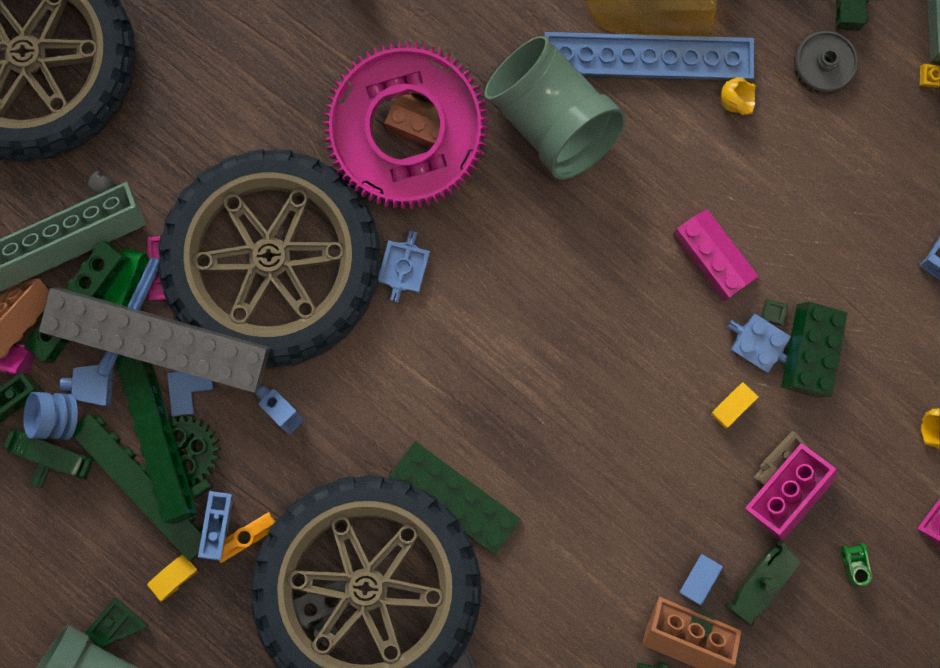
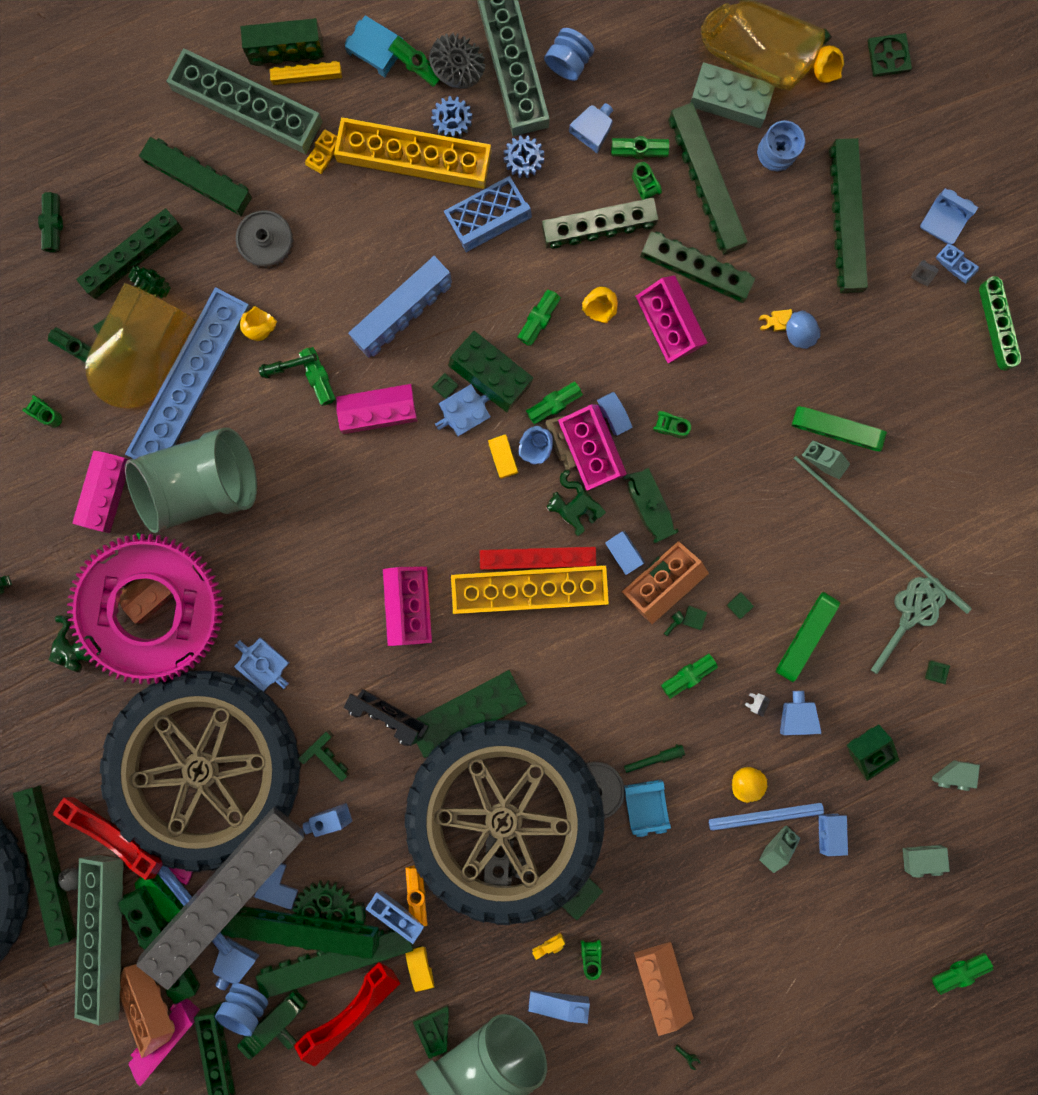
camera: 55 degrees left, 5 degrees up
(54, 513) = (321, 1041): none -> red arch
(103, 152) = (44, 865): none -> dark green brick
(165, 181) = (89, 822): none -> red arch
(320, 72) = (64, 653): none -> dark green animal
(344, 375) = (326, 756): none -> dark green bracket
(413, 444) = (408, 728): none -> black piece
(496, 27) = (101, 492): none -> dark pink slope
(534, 382) = (407, 605): none -> dark pink slope
(614, 500) = (529, 589): none -> yellow brick
(656, 502) = (537, 558): none -> red arch
(697, 127) = (279, 367): none -> dark green pin
(718, 180) = (318, 378): none -> green piece
(724, 508) = (577, 507): none -> dark green animal
(764, 433) = (536, 445): none -> medium blue hair
(815, 431) = (554, 403): none -> green piece
(831, 228) = (401, 307): none -> medium blue brick
(838, 499) = (615, 413): none -> medium blue slope
(893, 372) = (539, 317): none -> green piece

